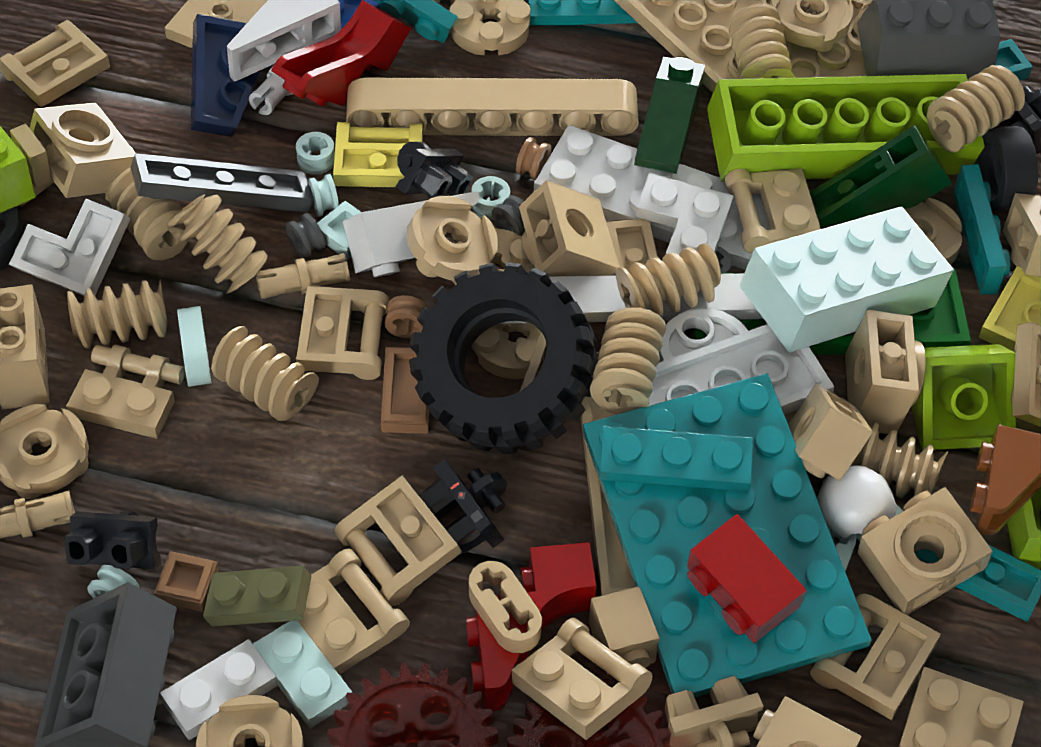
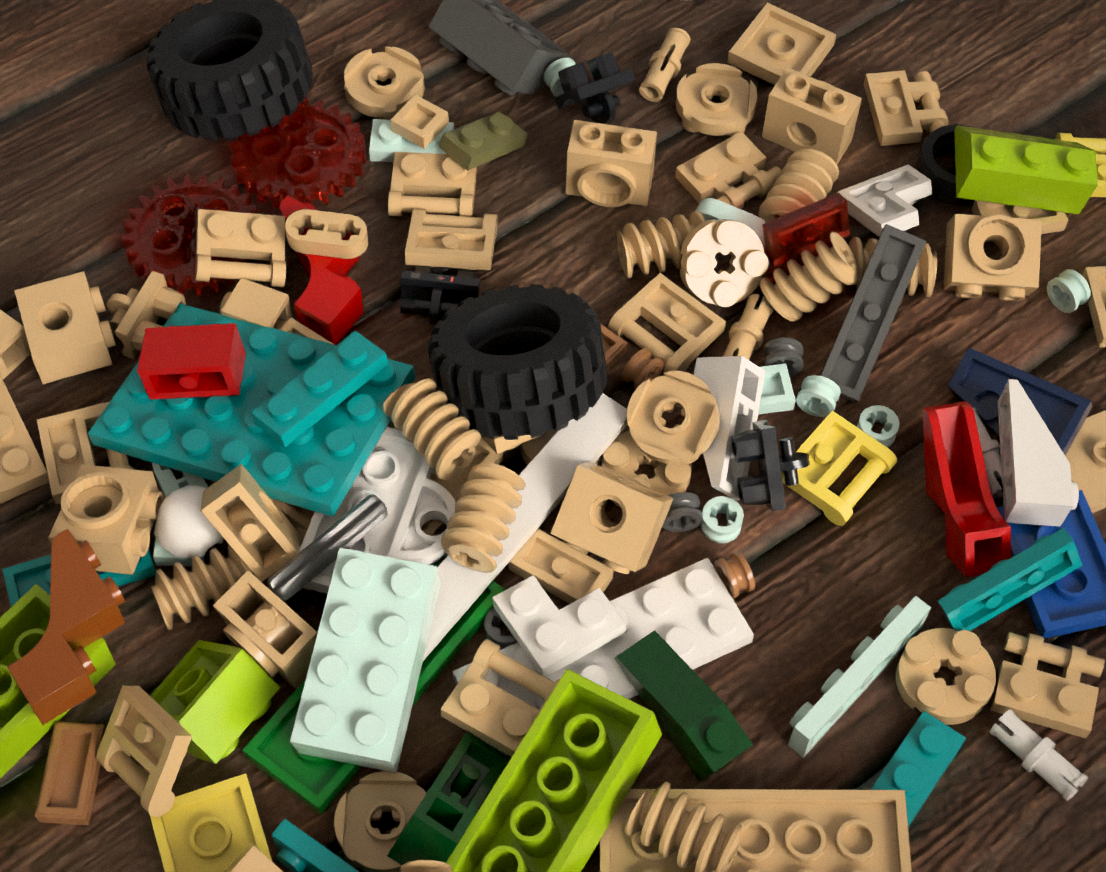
camera: 130 degrees right, 5 degrees up
(35, 154) = (1002, 202): tan plate -> none
(70, 95) = (1068, 291): none -> light aqua bush
(174, 268) = (801, 229): none -> clear red plate
(186, 581) = (540, 123): medium nougat tile -> none
(207, 461) = (610, 164): none -> tan brick
(227, 677) = (445, 87): white plate -> none
(250, 312) = (746, 263): none -> plate
(288, 654) = (419, 121): none -> tan tile
(495, 105) = (819, 591): tan beam -> none
(542, 52) = (843, 688): none -> light aqua plate
(792, 367) = (325, 548): none -> dark grey axle

